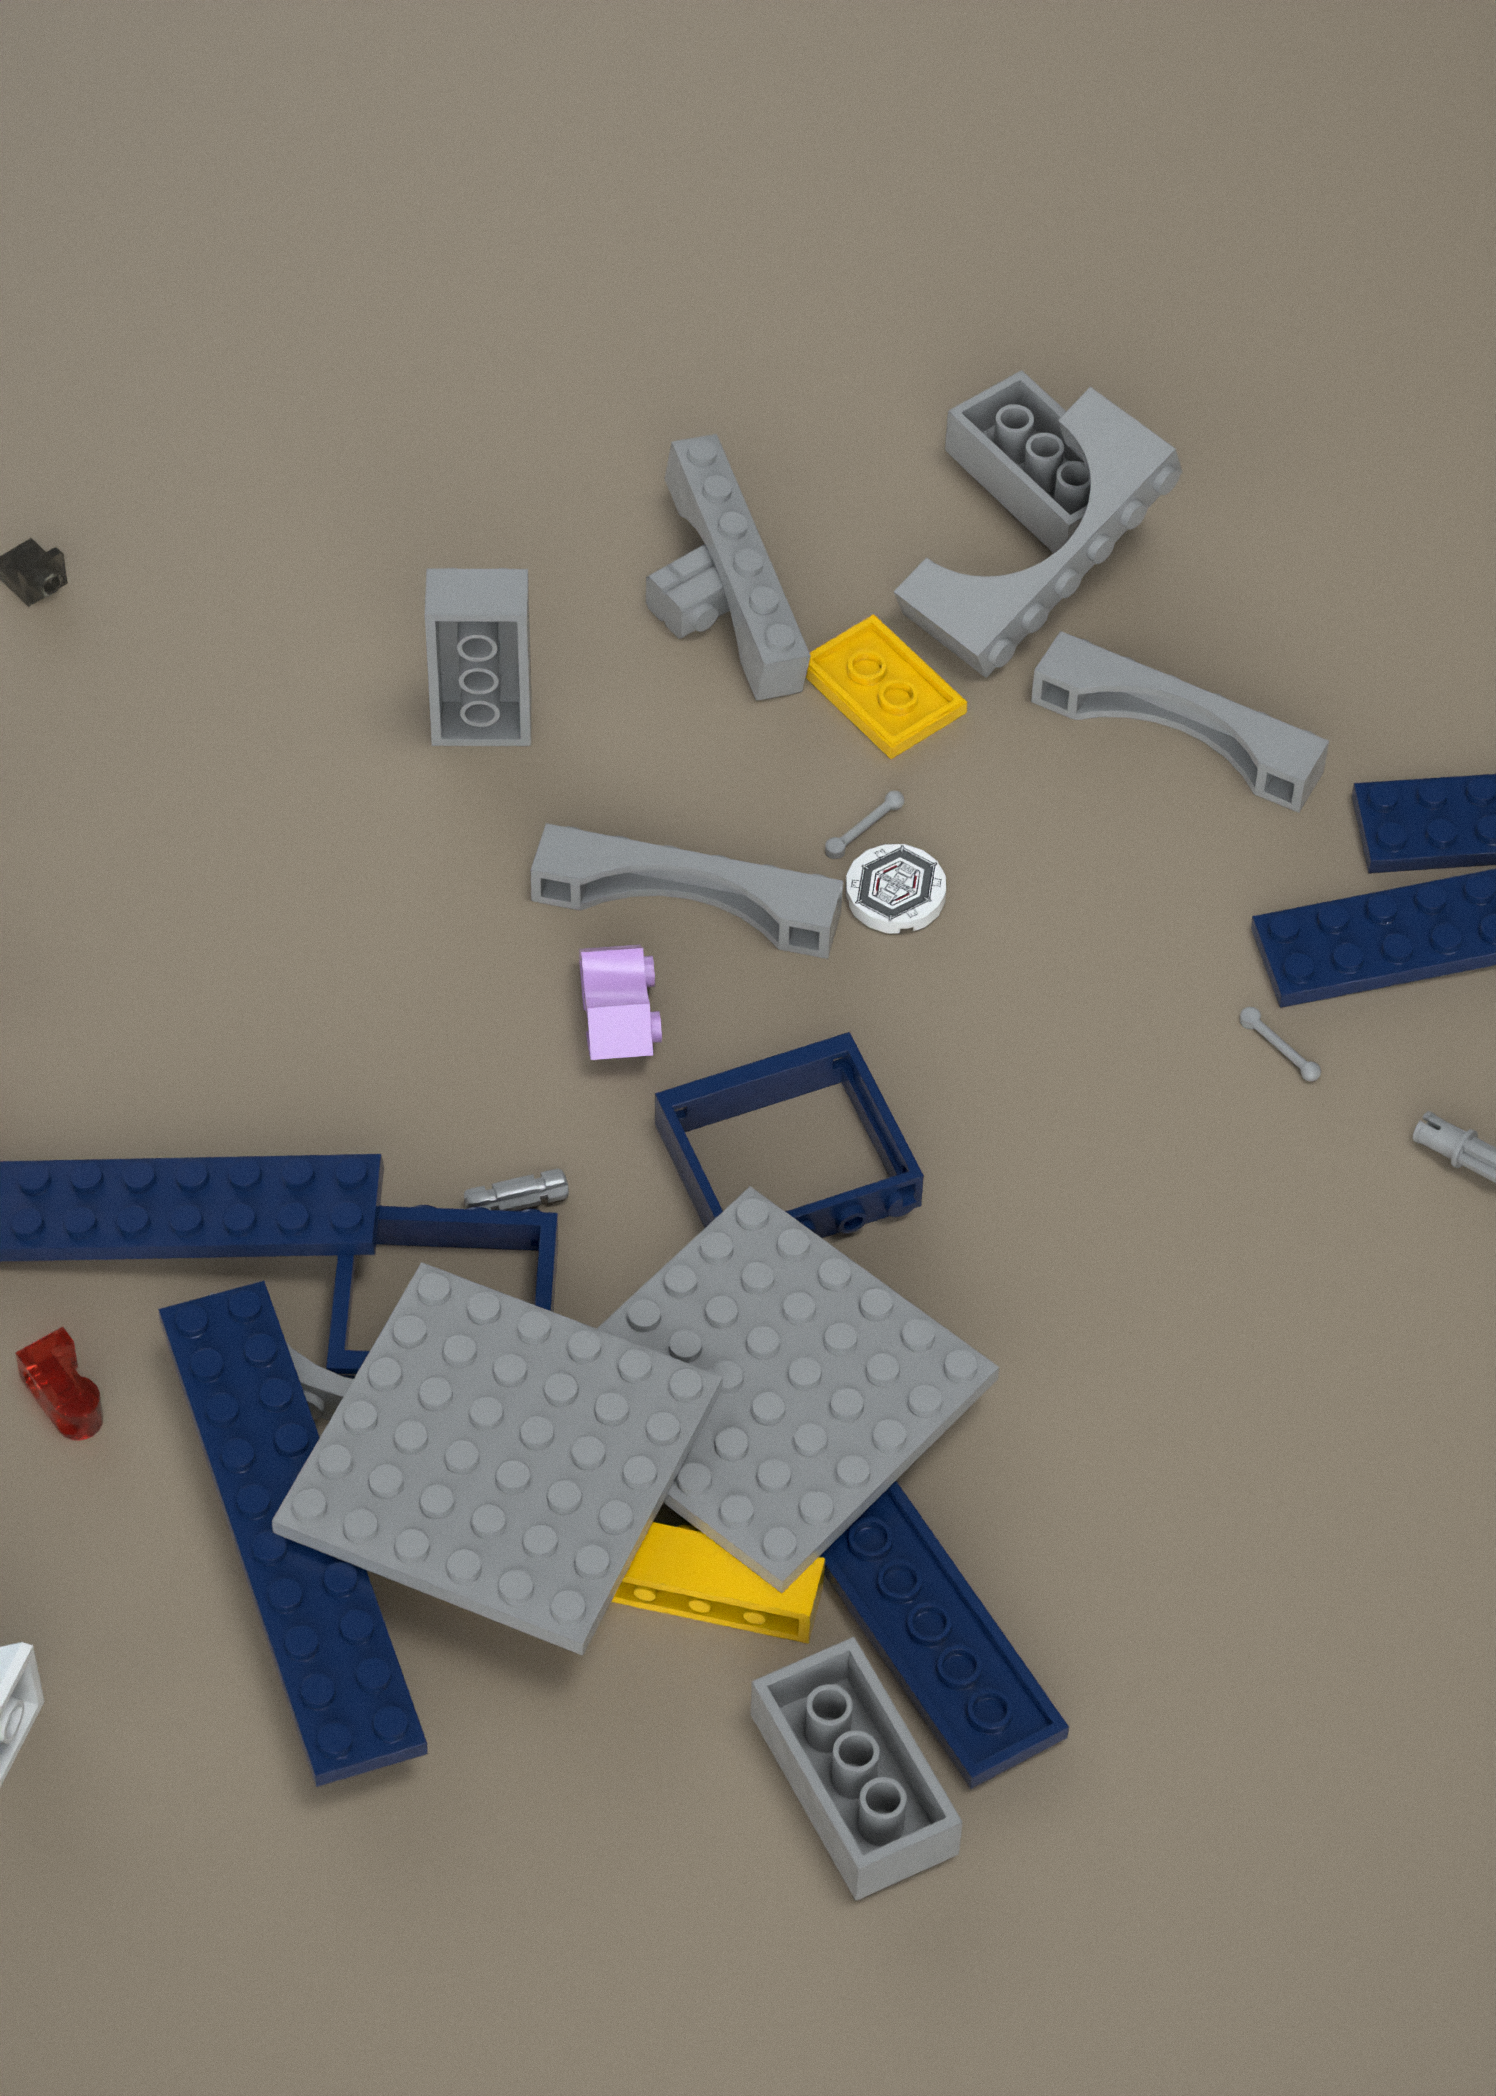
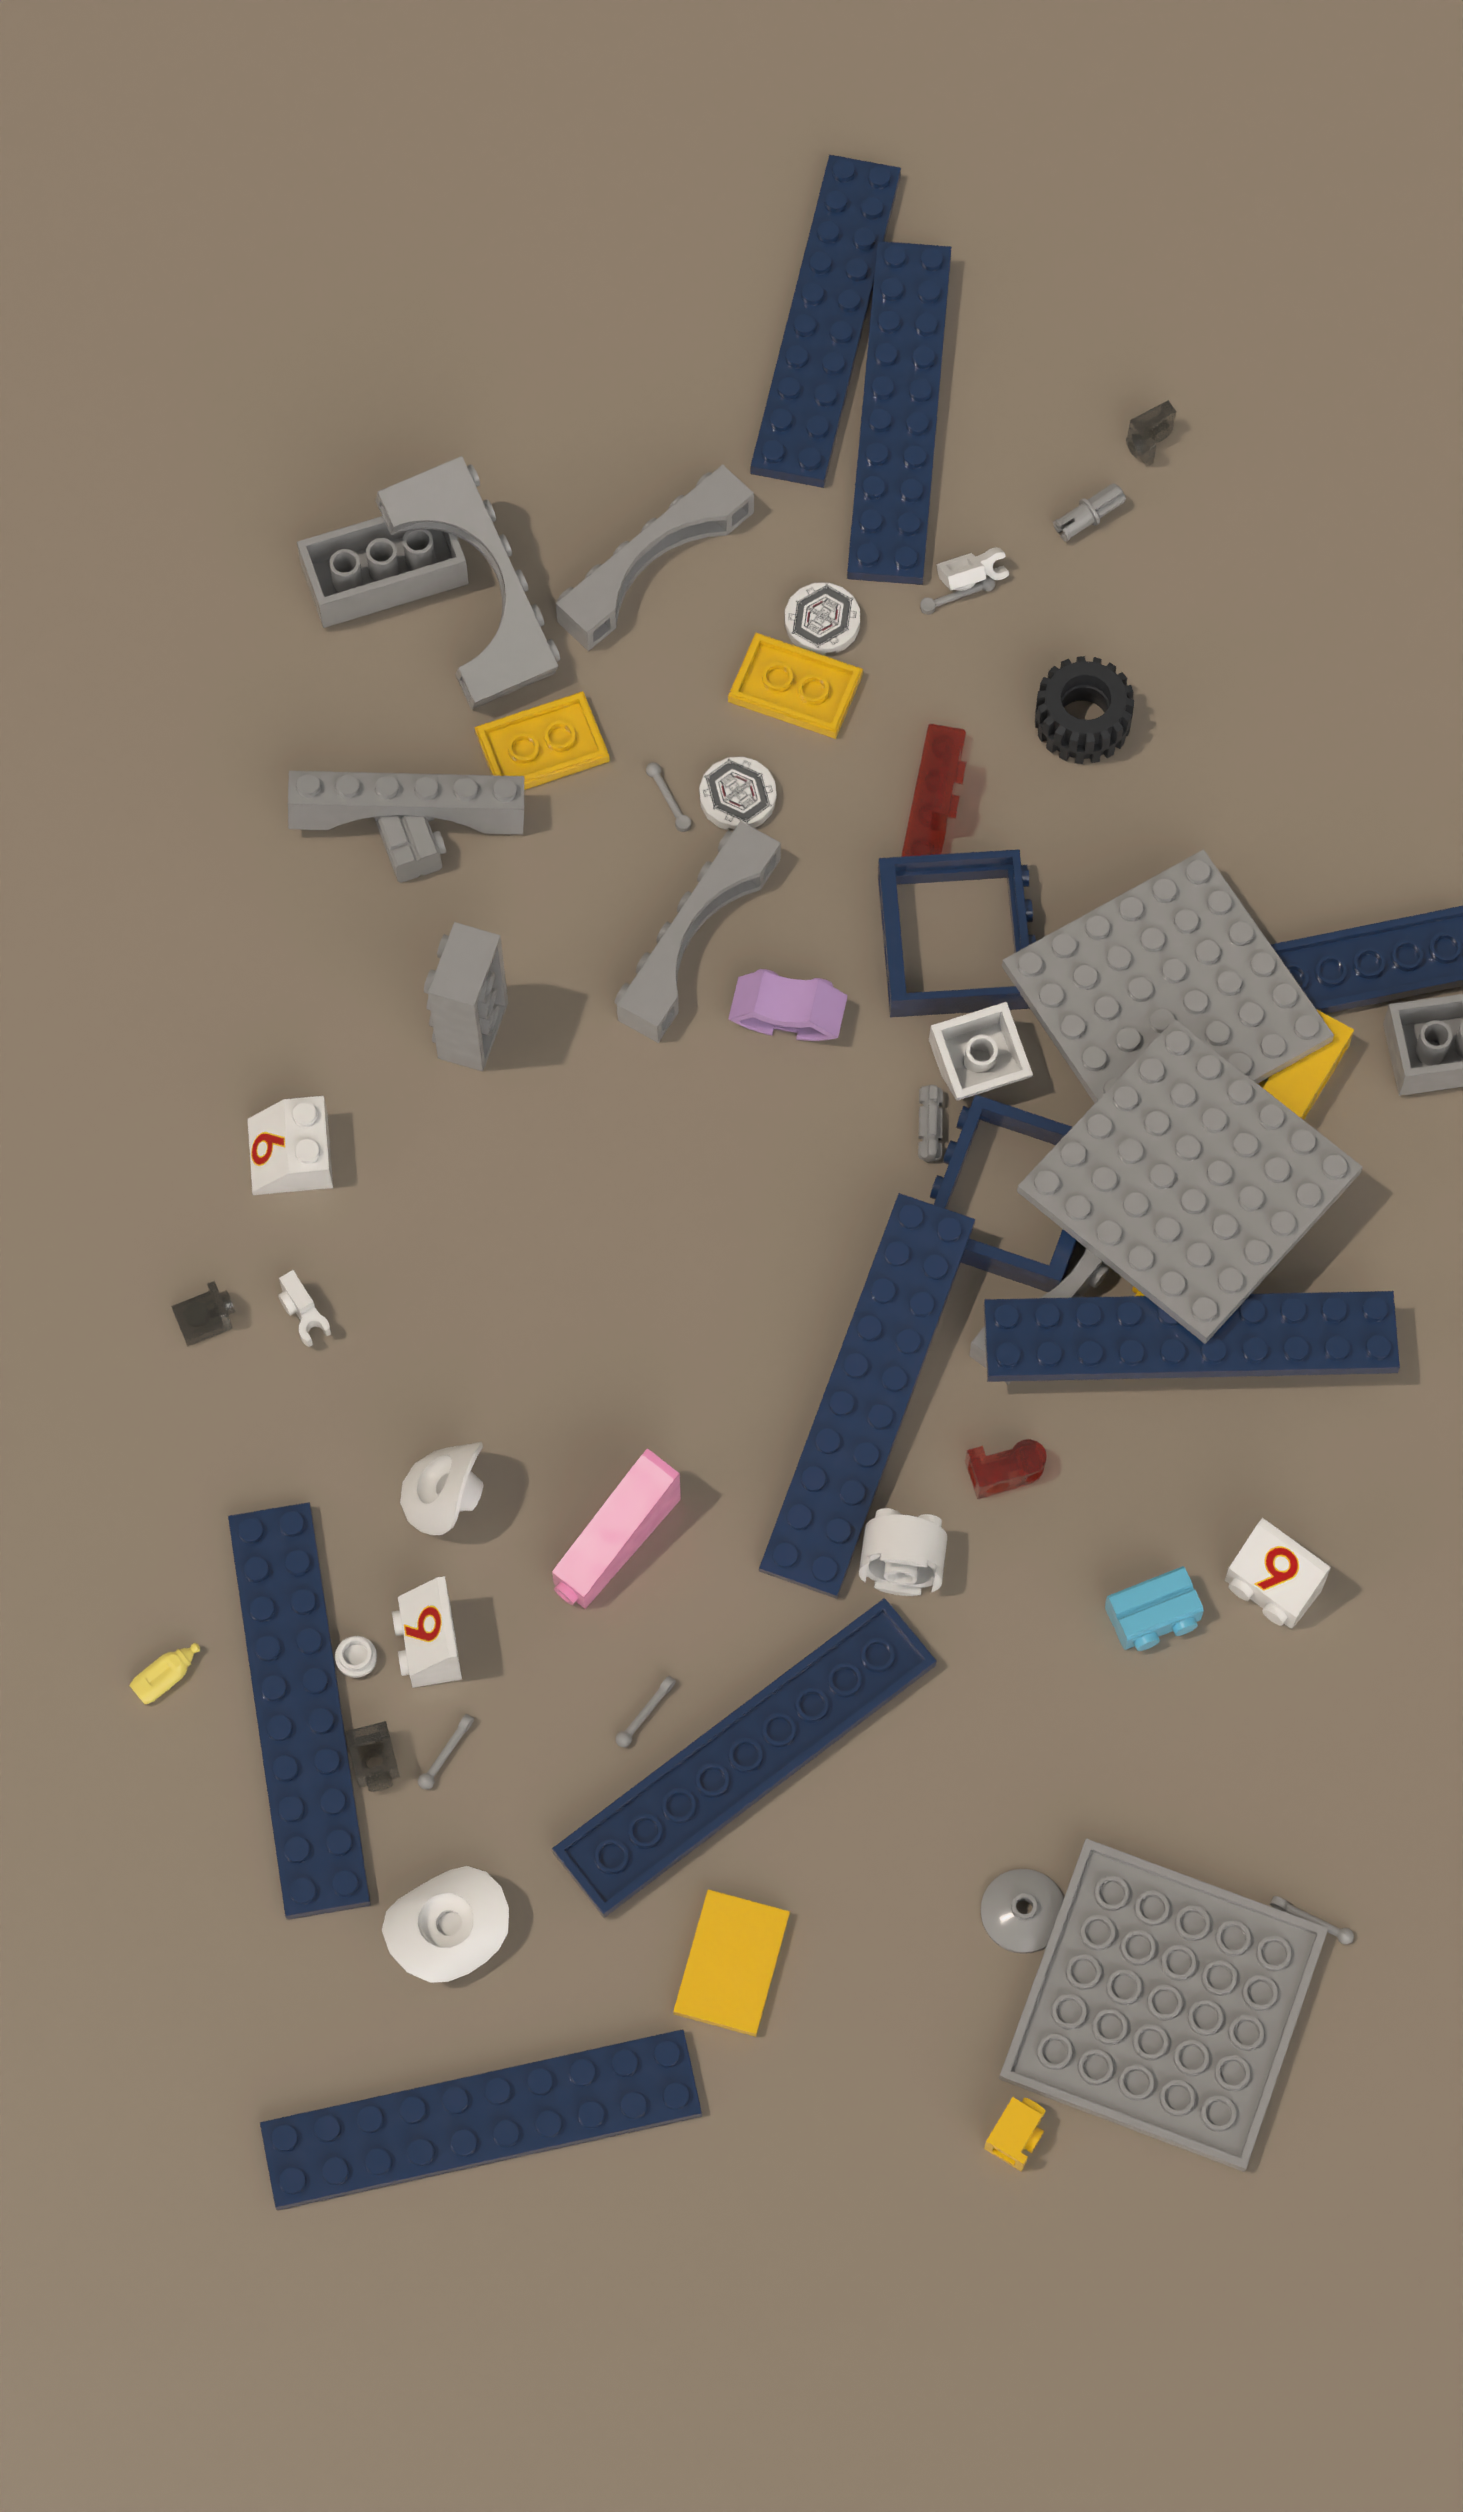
camera: 70 degrees left, 15 degrees up
(70, 647) = (297, 1300): none -> white plate
(266, 595) = (290, 1147): none -> white slope
(621, 1205) = (979, 1051): none -> white slope
(981, 1083) = (934, 791): none -> clear red bracket
(1073, 910) = (795, 685): none -> yellow tile
(1170, 1171) = (1089, 683): none -> black tyre
(1177, 911) = (822, 618): none -> tile
(1311, 1035) = (968, 569): none -> white plate

